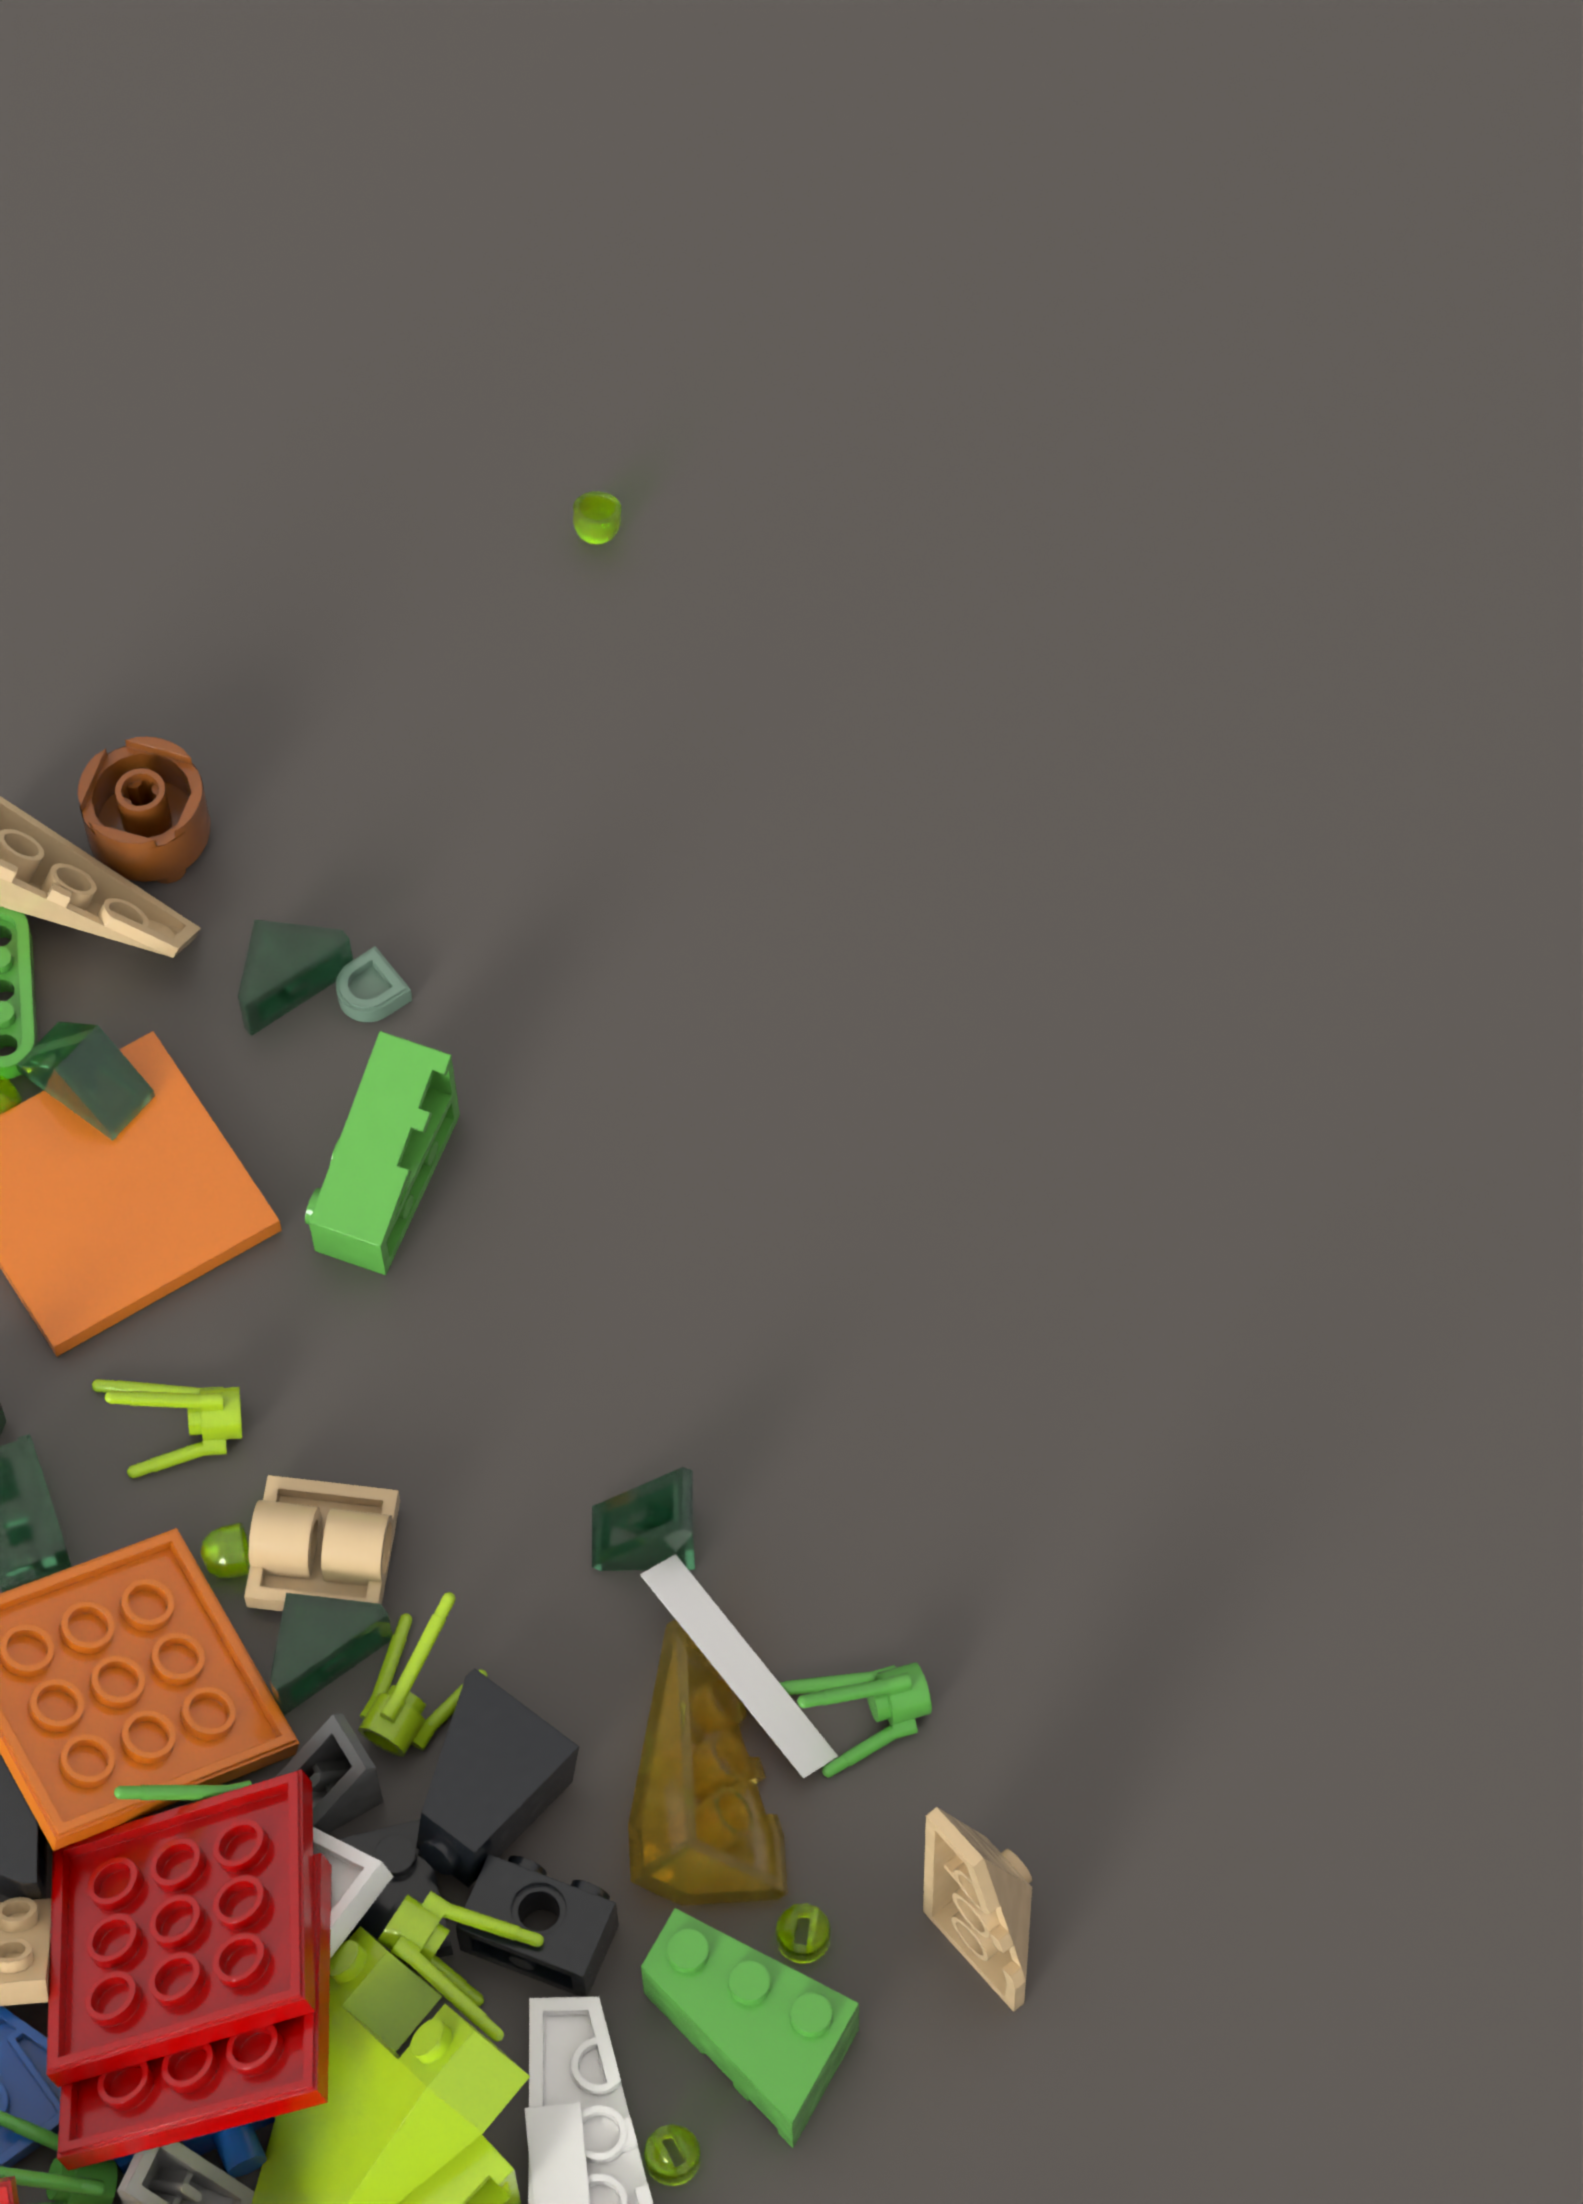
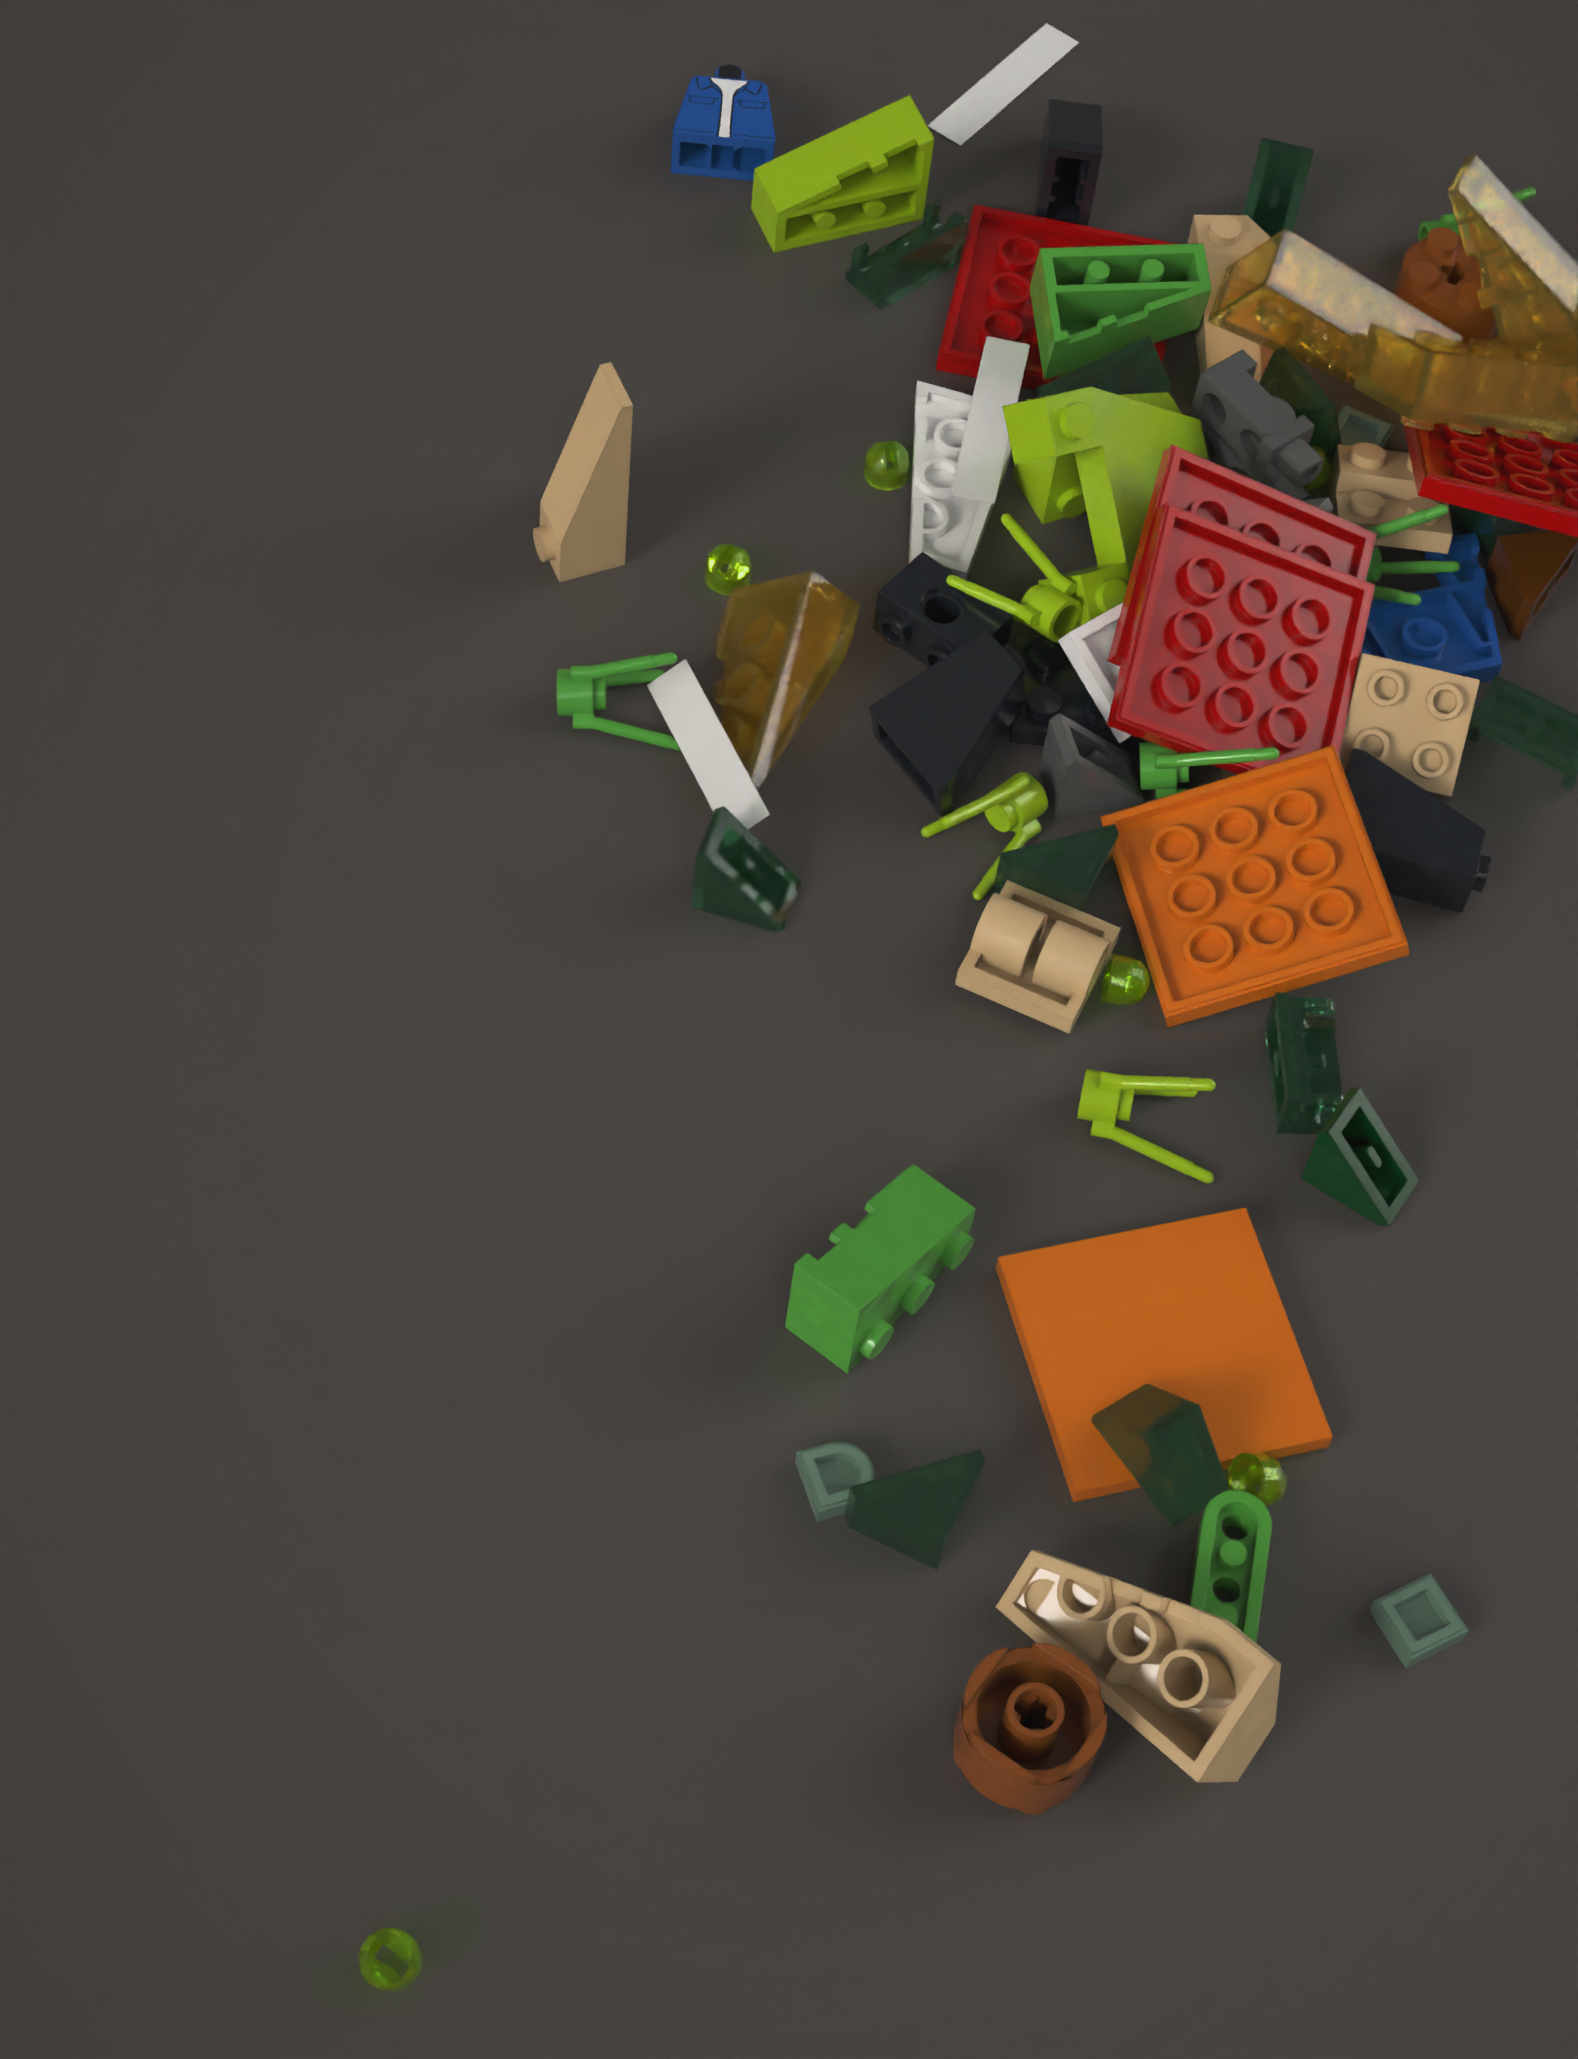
camera: 170 degrees left, 5 degrees down
(752, 2017) = (794, 503): bright green wedge -> none

